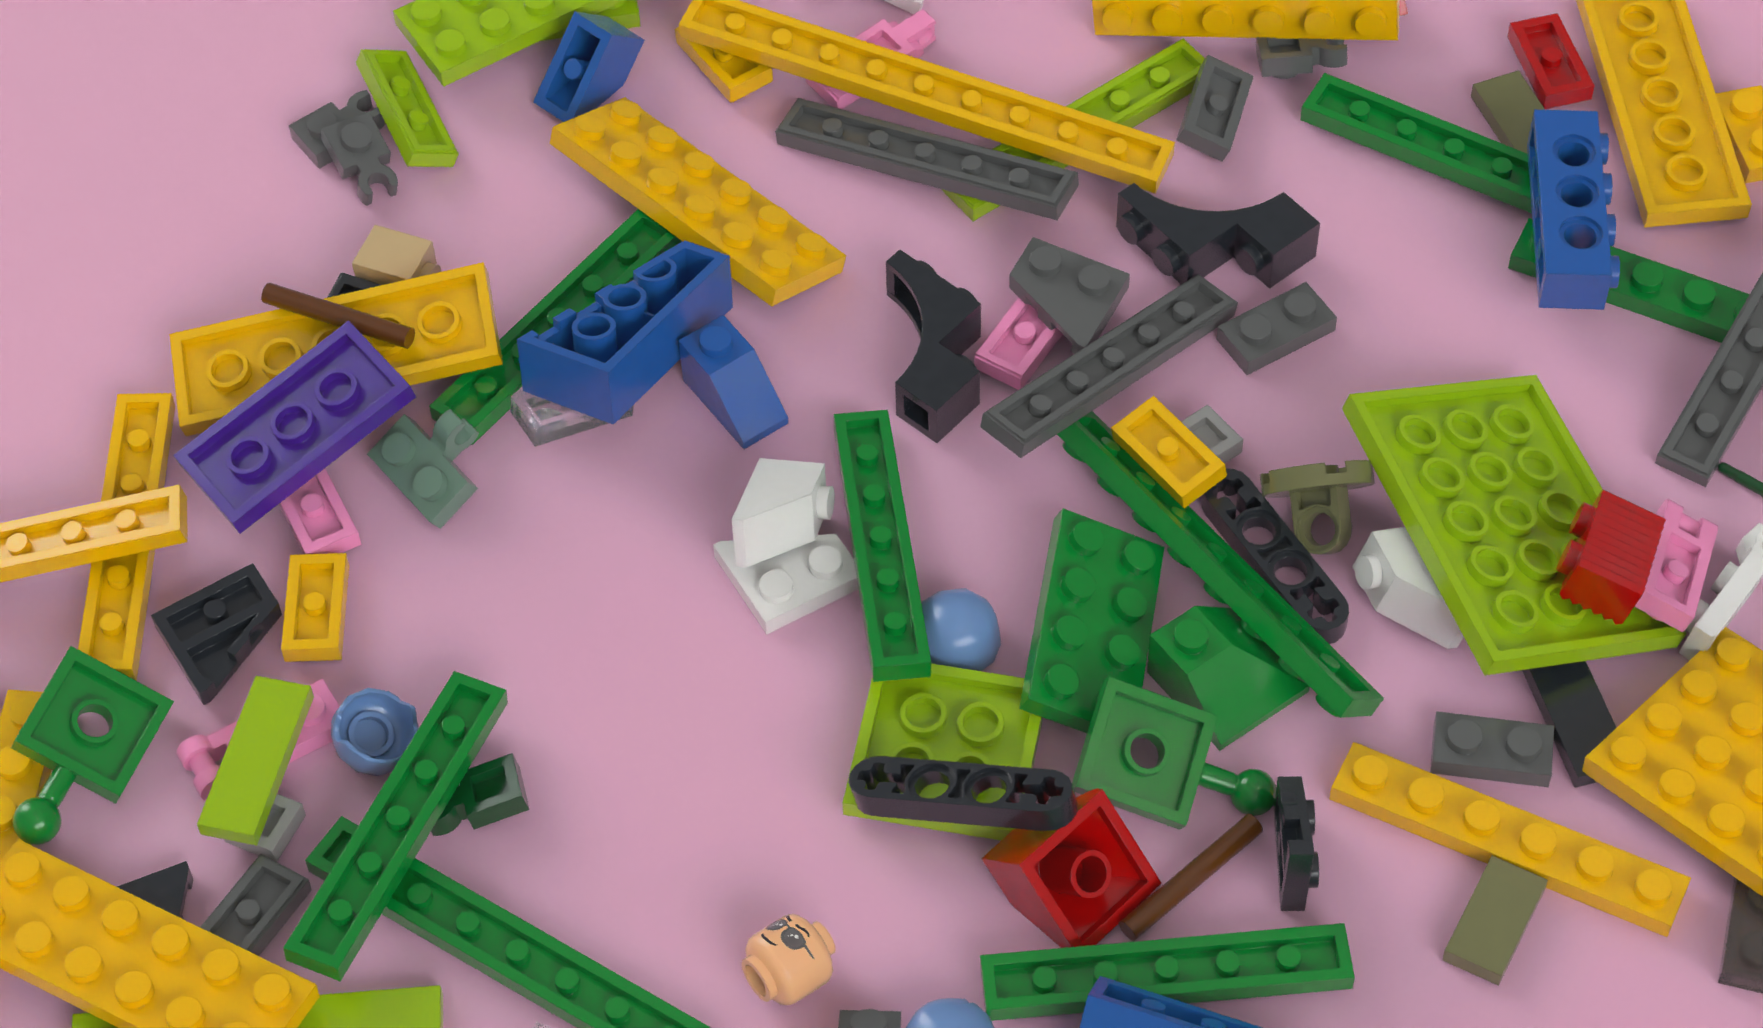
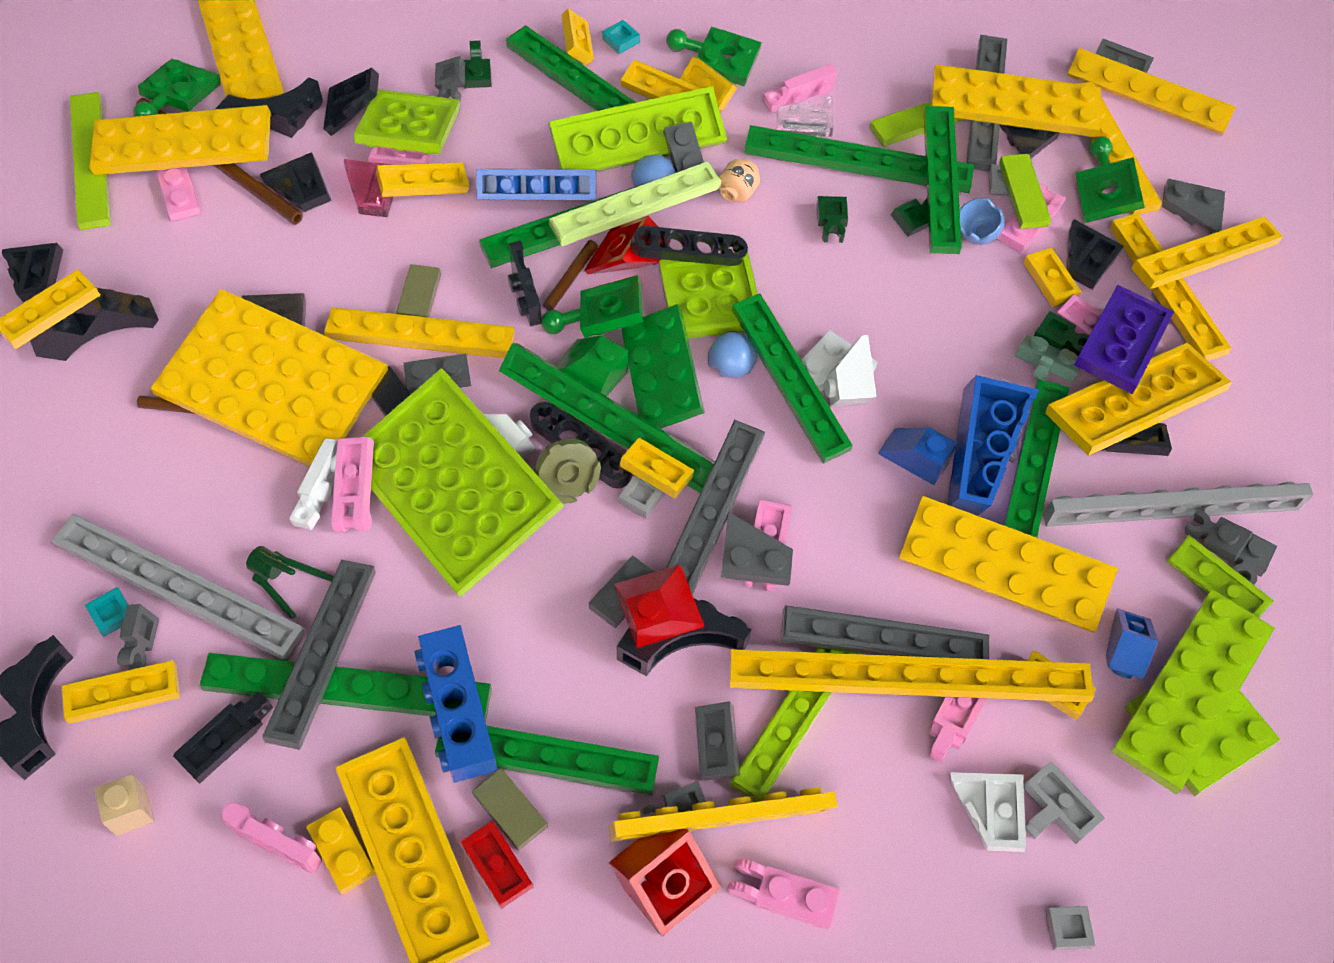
camera: 155 degrees right, 5 degrees up
(337, 315) = (1148, 399): reddish brown bar -> none
(375, 506) = (1061, 333): none -> dark green plate
(391, 205) = (1177, 504): none -> light grey plate
(394, 257) = (1145, 465): tan brick -> none
(640, 846) = (833, 215): none -> dark green plate
(940, 381) = (821, 524): black arch -> none
(1018, 956) = (634, 203): none -> yellowish green tile
(1246, 237) = (658, 606): none -> red slope
(1610, 557) = (389, 458): red brick -> none

